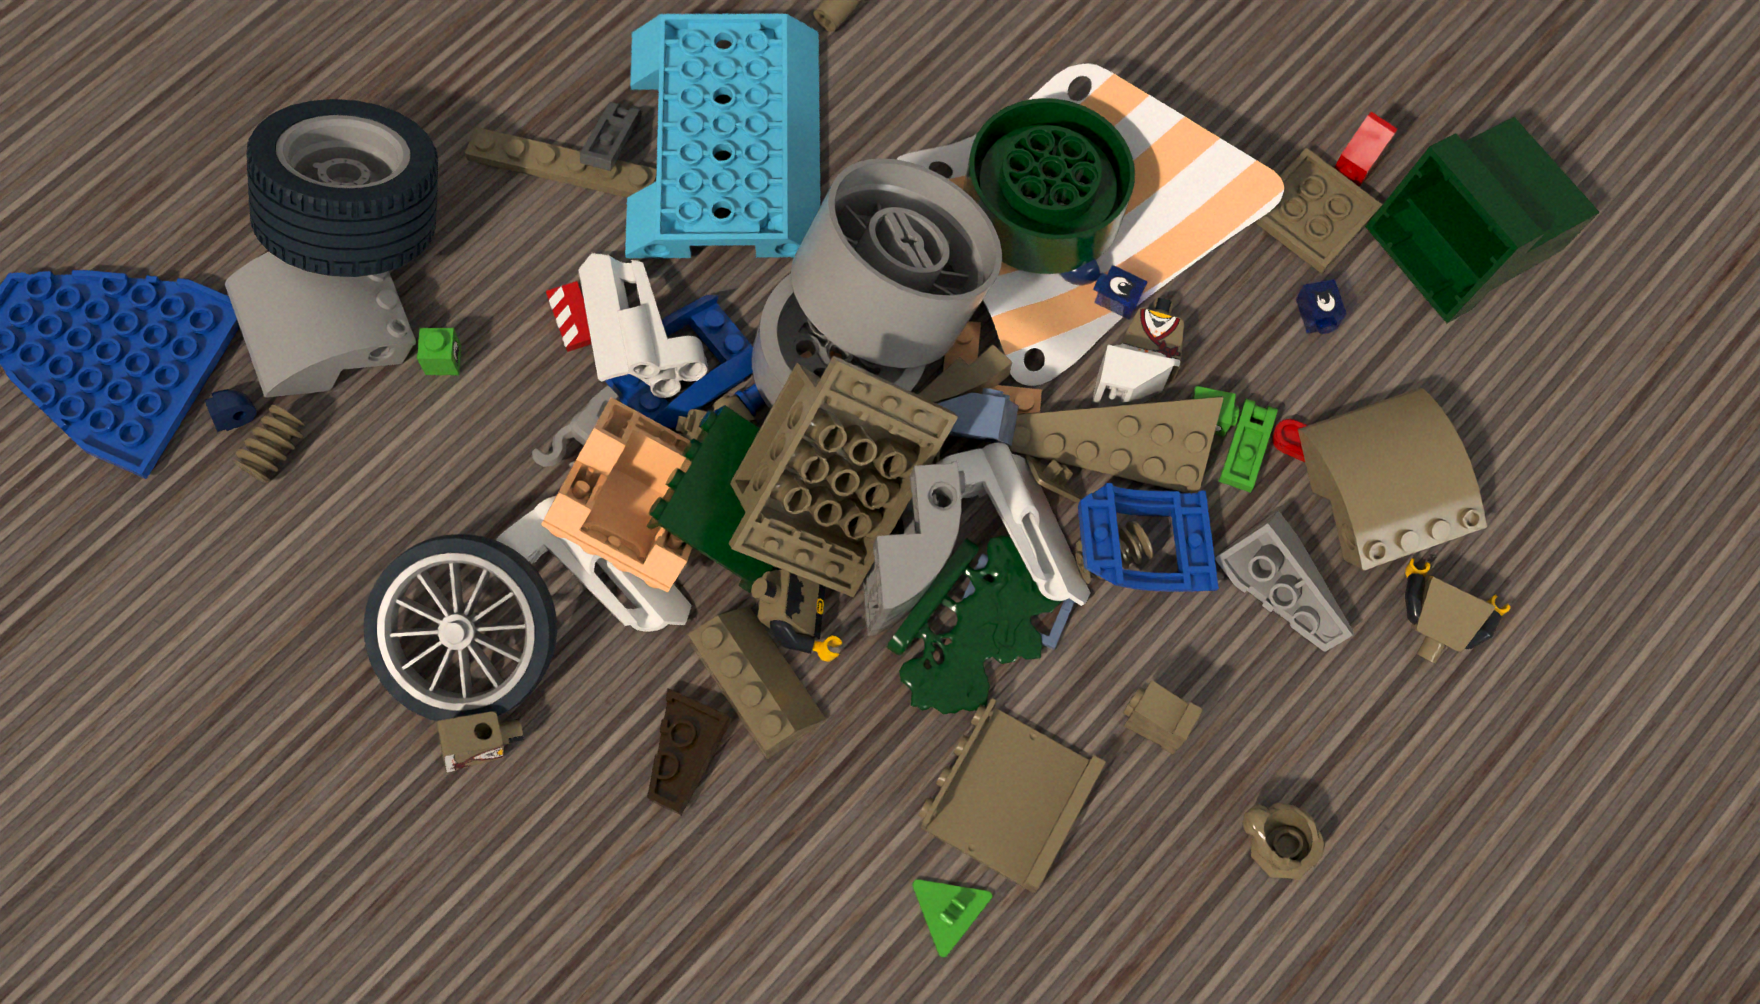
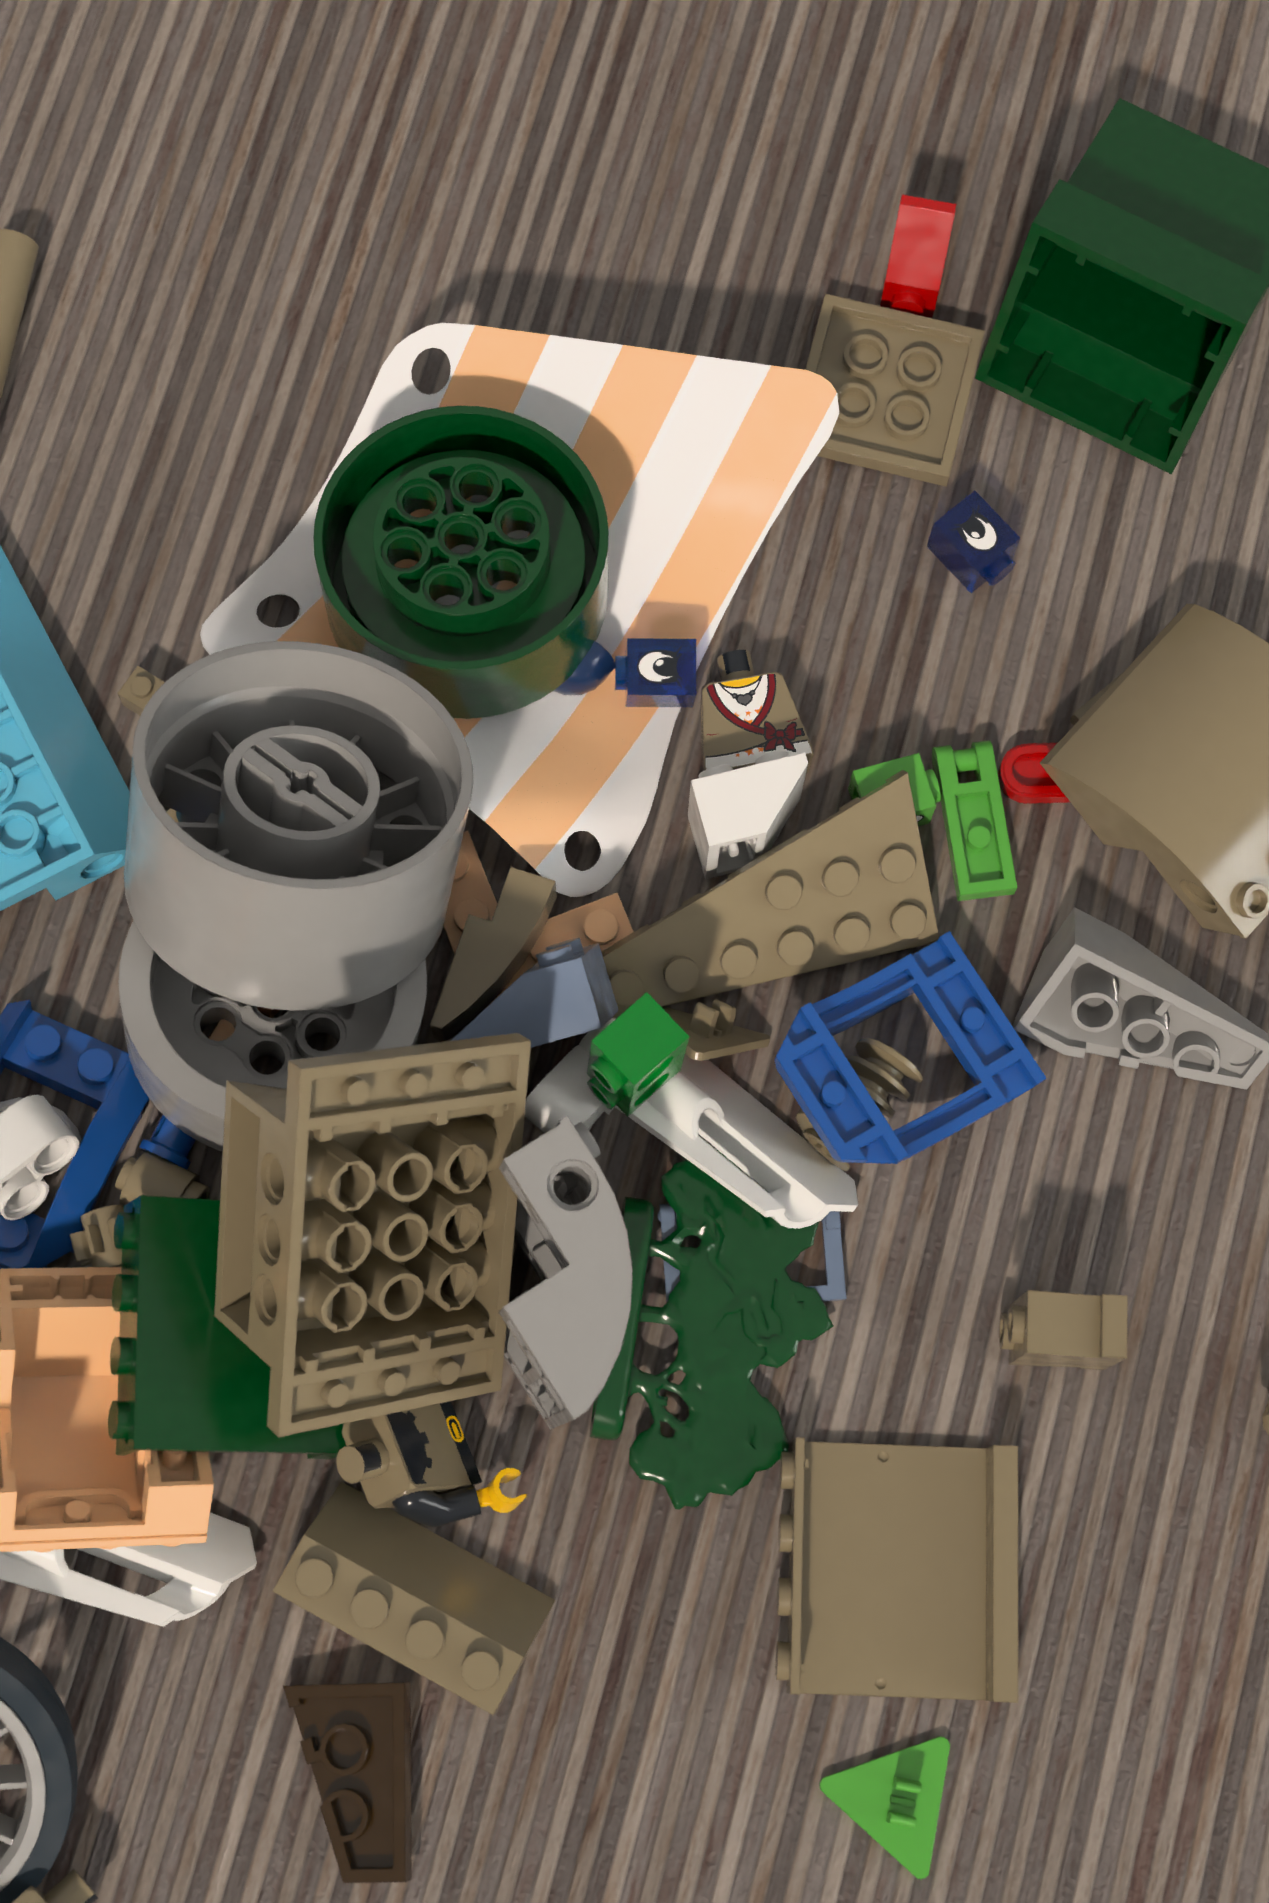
camera: 25 degrees left, 5 degrees up
(1008, 461) = (635, 1055): none -> green brick

